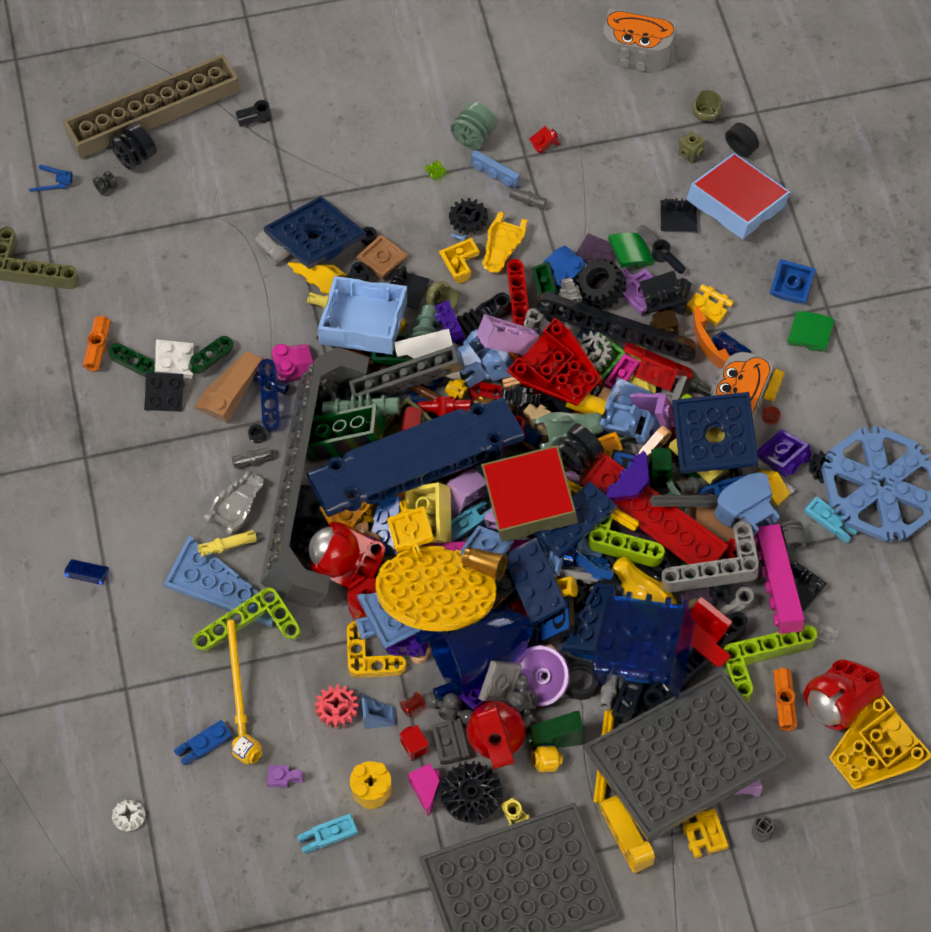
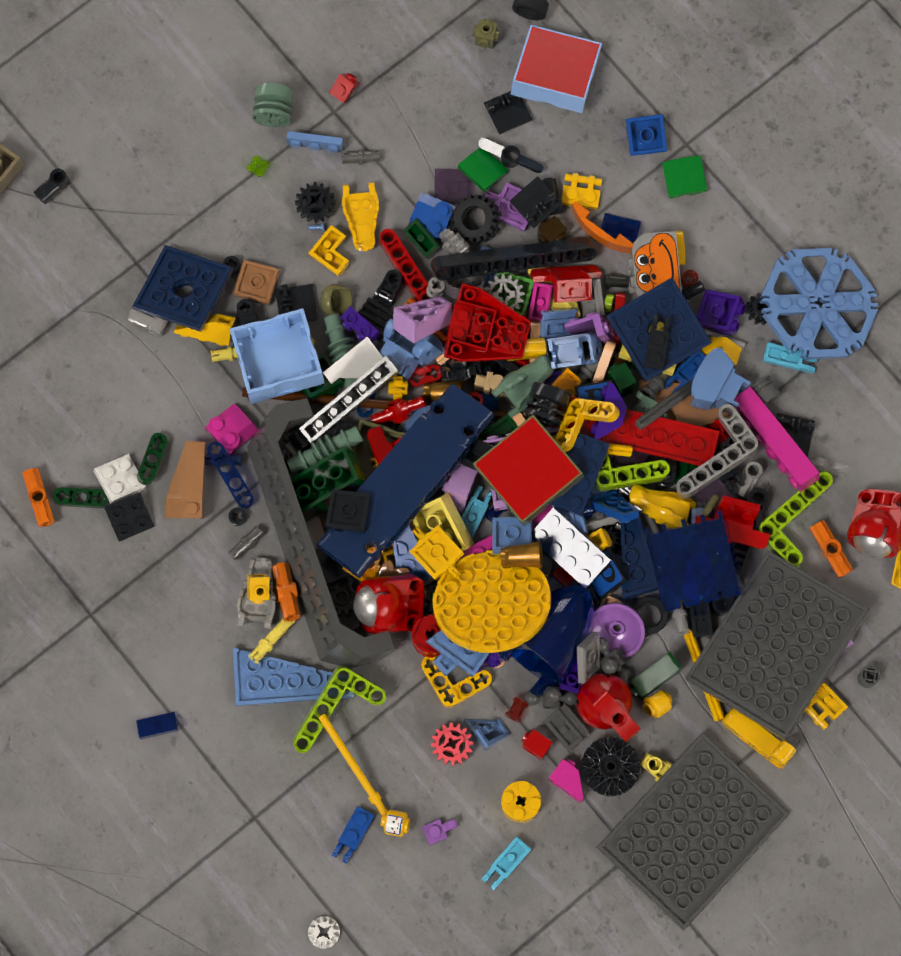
camera: 30 degrees left, 15 degrees up
(238, 485) = (254, 582): none -> yellow brick
(261, 510) = (286, 591): none -> orange piece
(348, 455) = (348, 511): none -> black tile
(597, 469) = (581, 409): none -> yellow beam
(706, 442) = (657, 345): none -> black hinge
(767, 425) = (693, 290): none -> black pin

